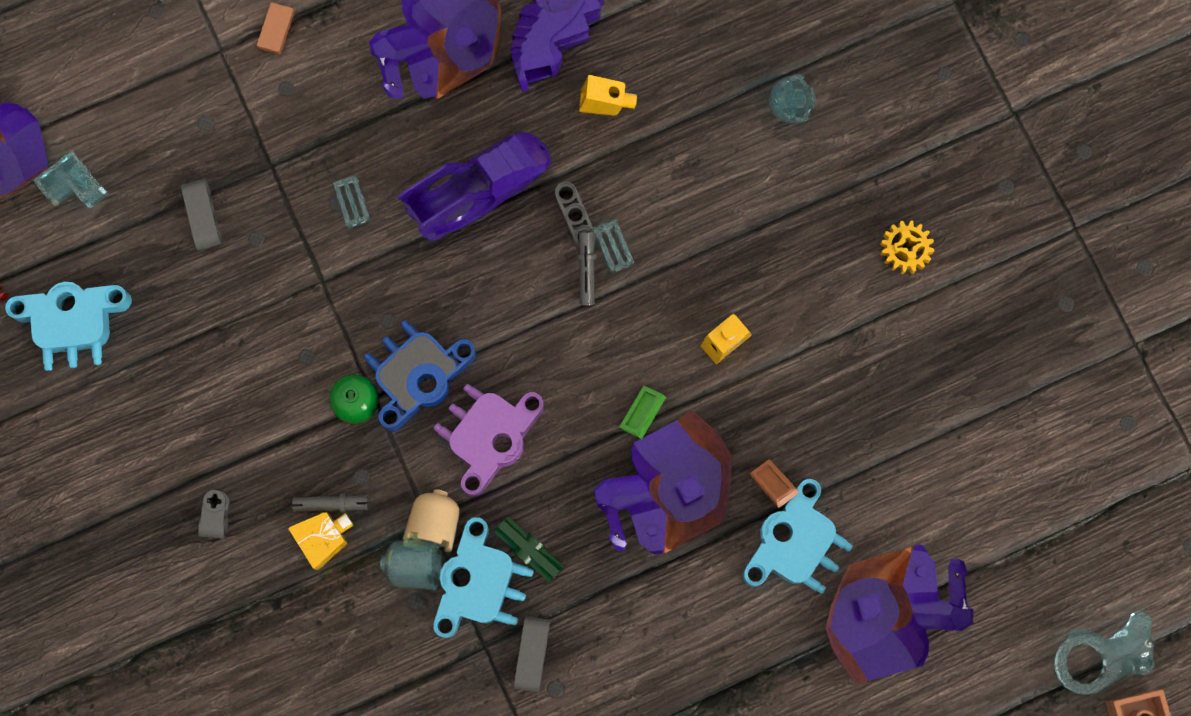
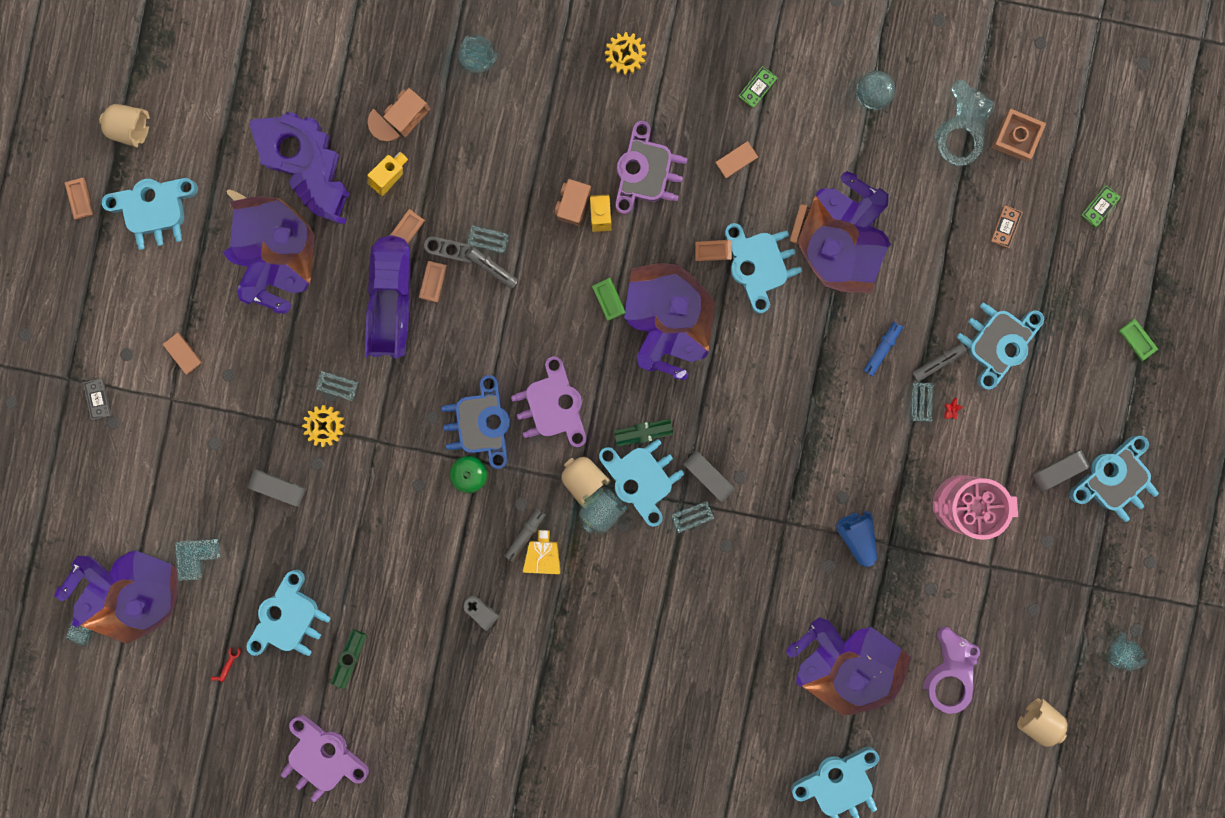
camera: 55 degrees left, 10 degrees up
(55, 416) = (344, 670): none -> dark green piece
(290, 214) = (333, 417): none -> yellow gear
(457, 656) = (677, 522): none -> clear light blue tile
(529, 221) = (432, 281): none -> nougat tile
(567, 158) = (408, 226): none -> nougat tile
(646, 61) = (380, 128): none -> nougat tile
(681, 72) = (406, 112): none -> nougat brick
(715, 302) = (573, 202): none -> nougat brick
(805, 364) = (653, 173): none -> piece
(870, 552) = (799, 223): none -> nougat tile
(886, 440) = (736, 159): none -> nougat tile
(977, 407) = (757, 87): none -> tile
(1069, 532) = (878, 97): none -> clear light blue cylinder

